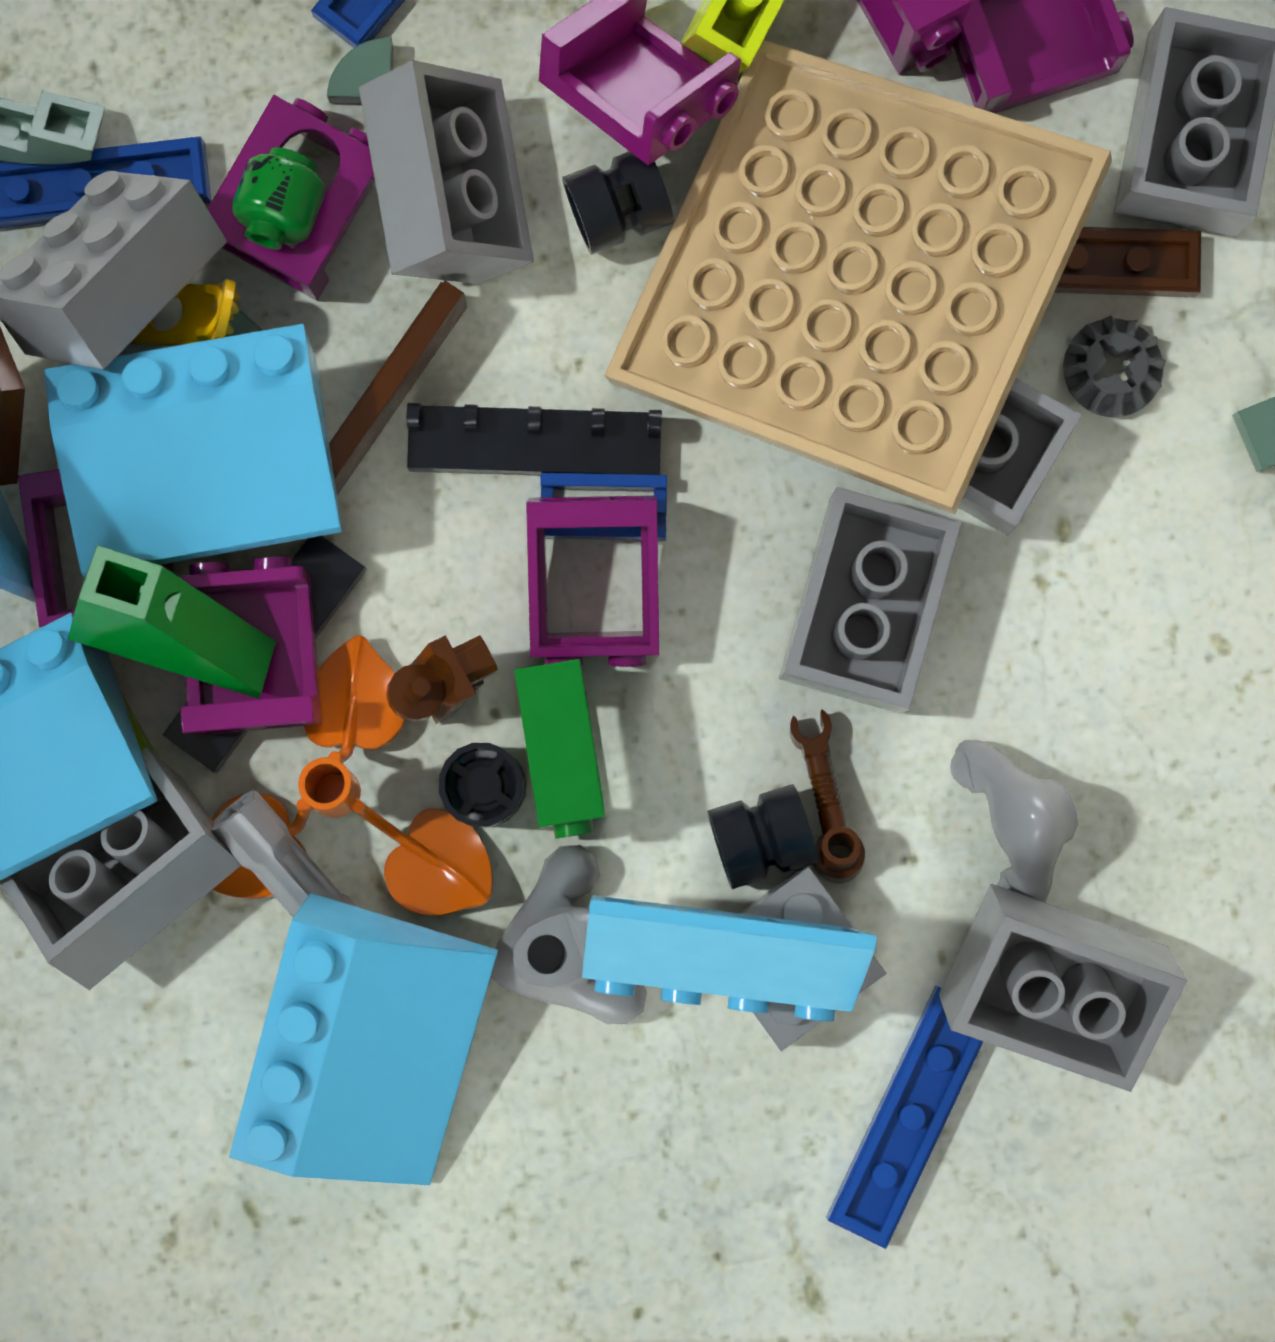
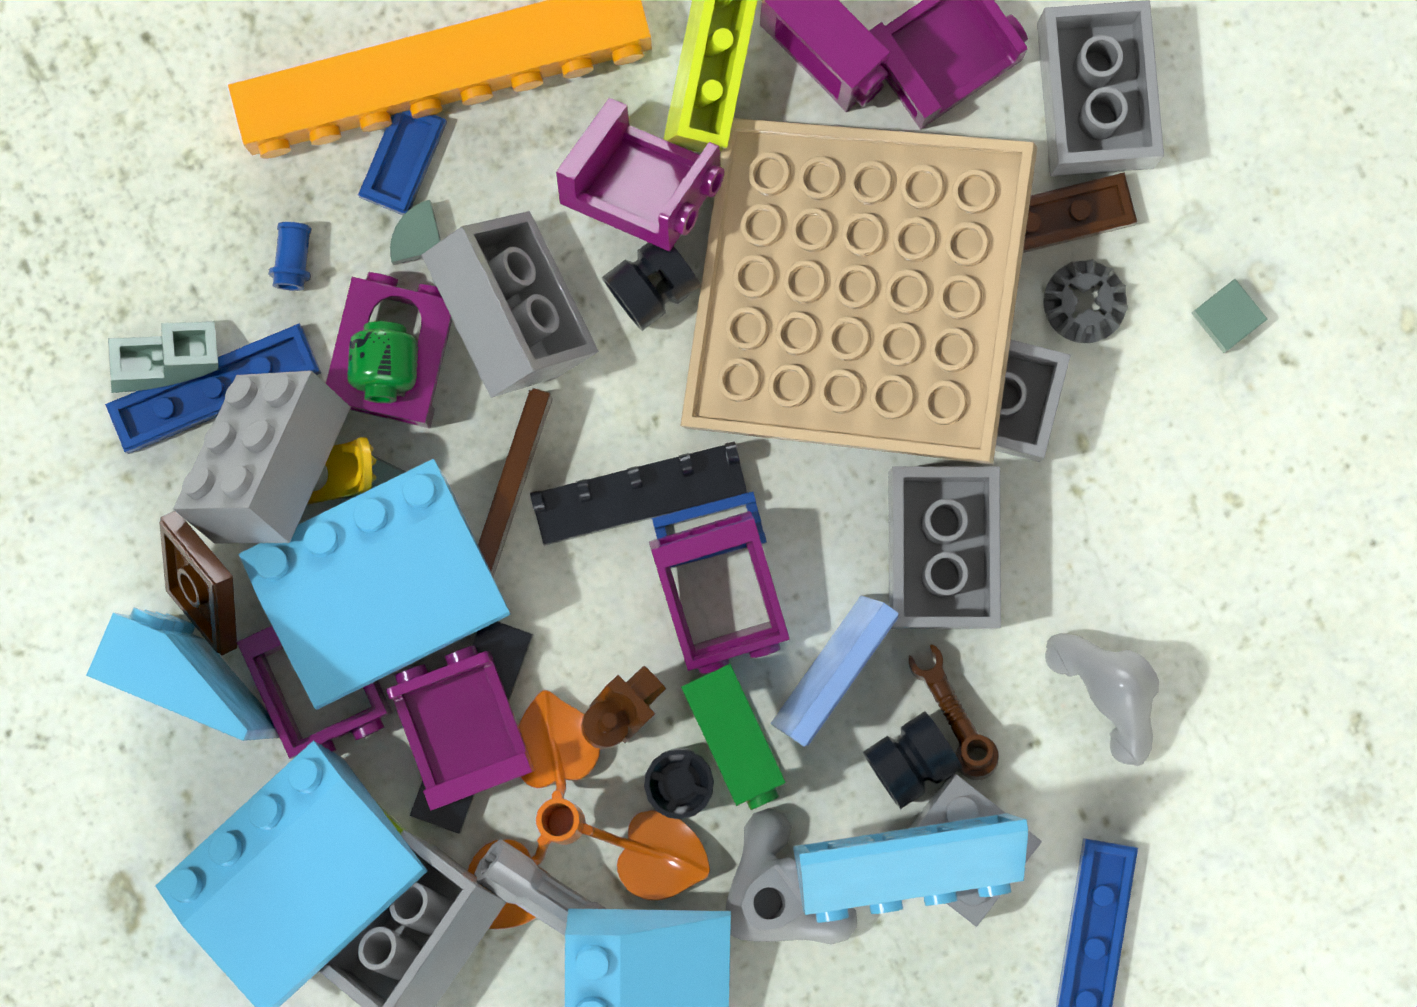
camera: 15 degrees left, 0 degrees up
(168, 624) = (394, 728): green slope -> none
(214, 58) = (291, 256): none -> blue pin
(702, 704) = (835, 669): none -> light blue tile
(1061, 988) = (1182, 813): light grey brick -> none

